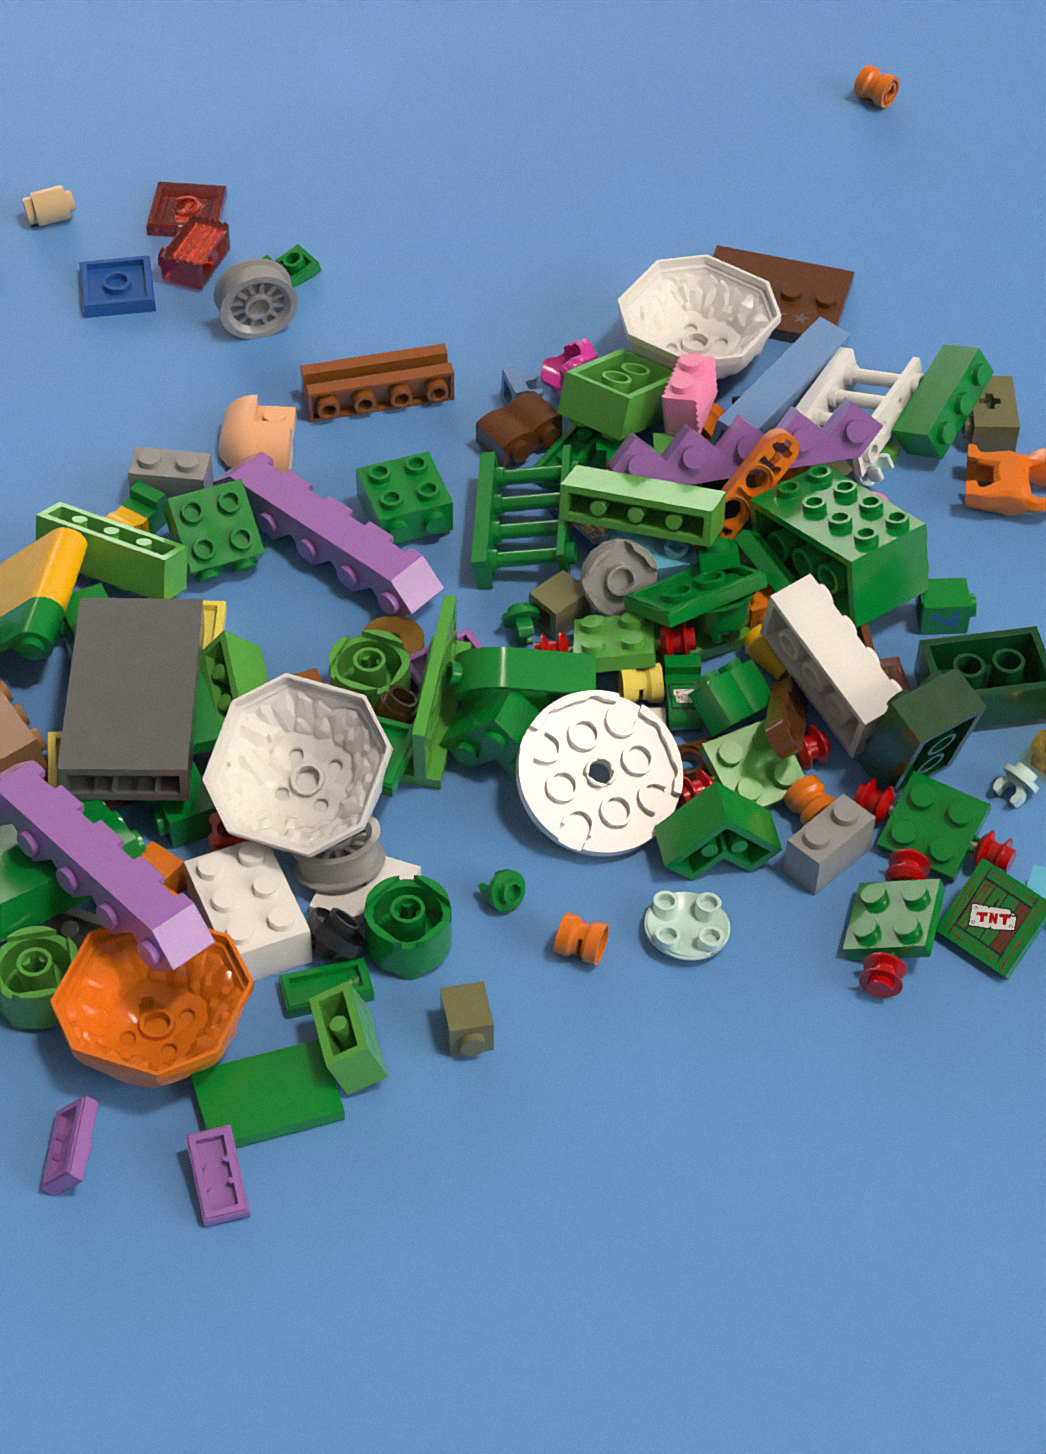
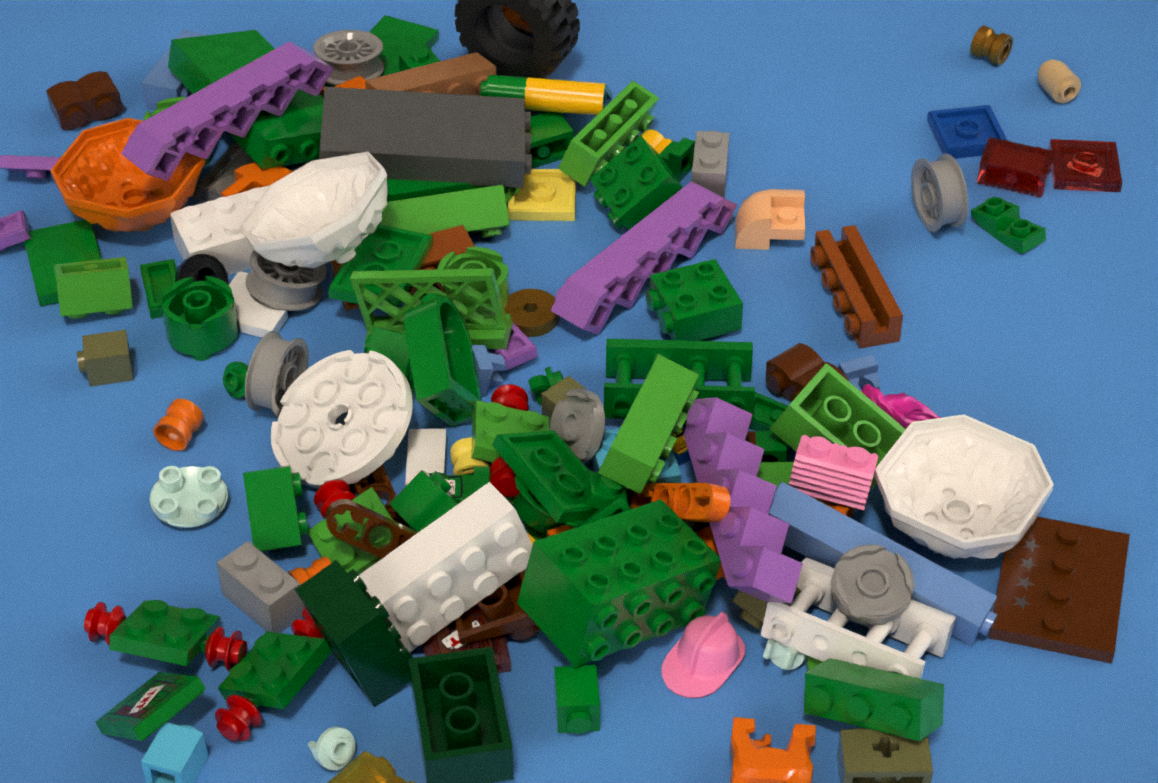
camera: 90 degrees right, 5 degrees down
(526, 834) = (273, 370): none -> light grey wheel
(821, 383) = (872, 584): none -> light grey tile

